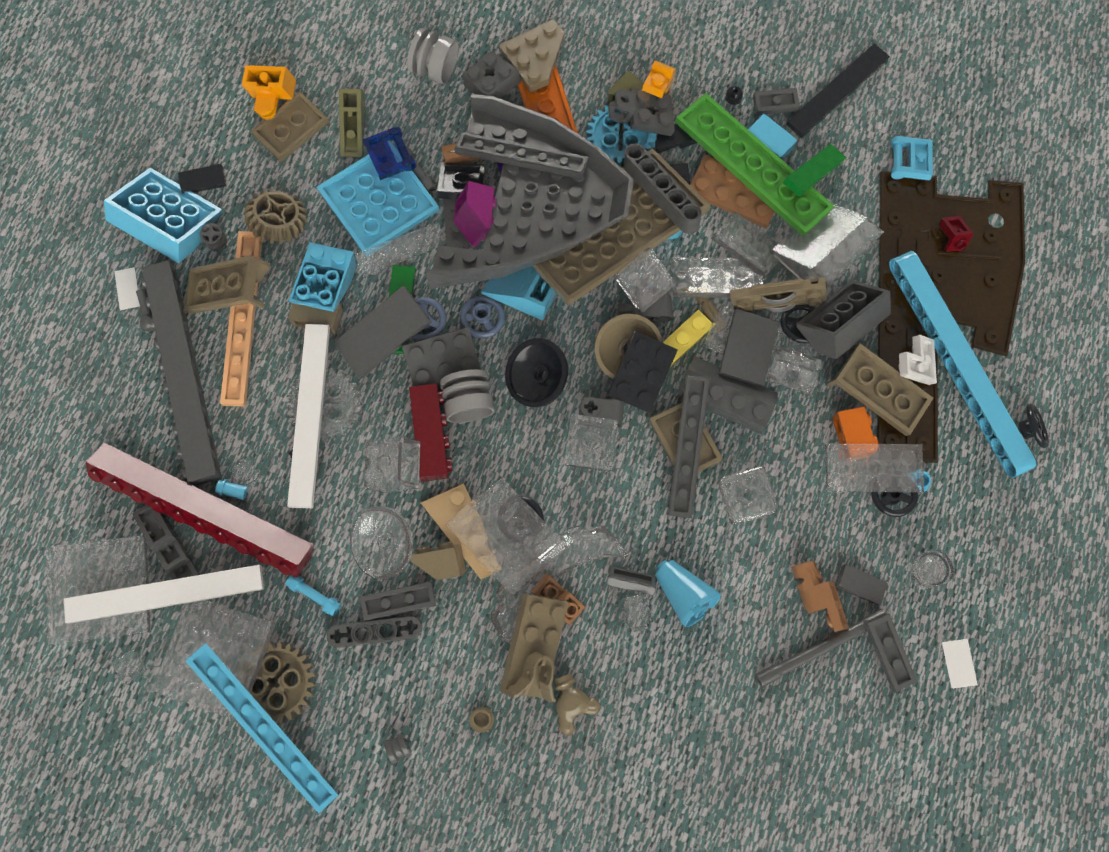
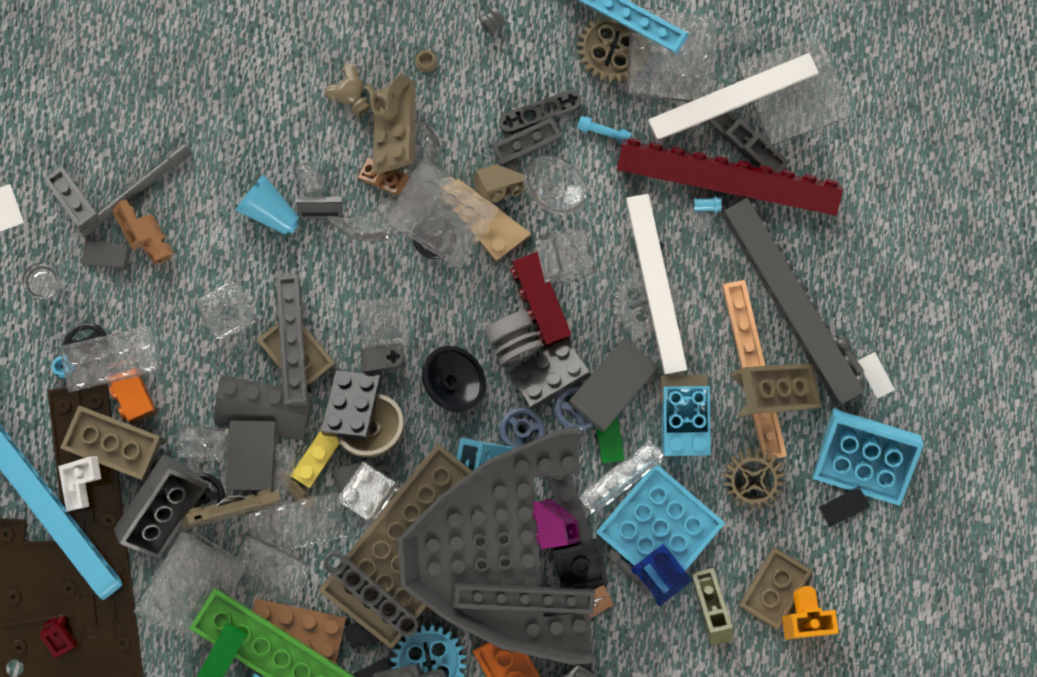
camera: 160 degrees right, 5 degrees up
(209, 232) = (815, 445): dark grey wheel -> none

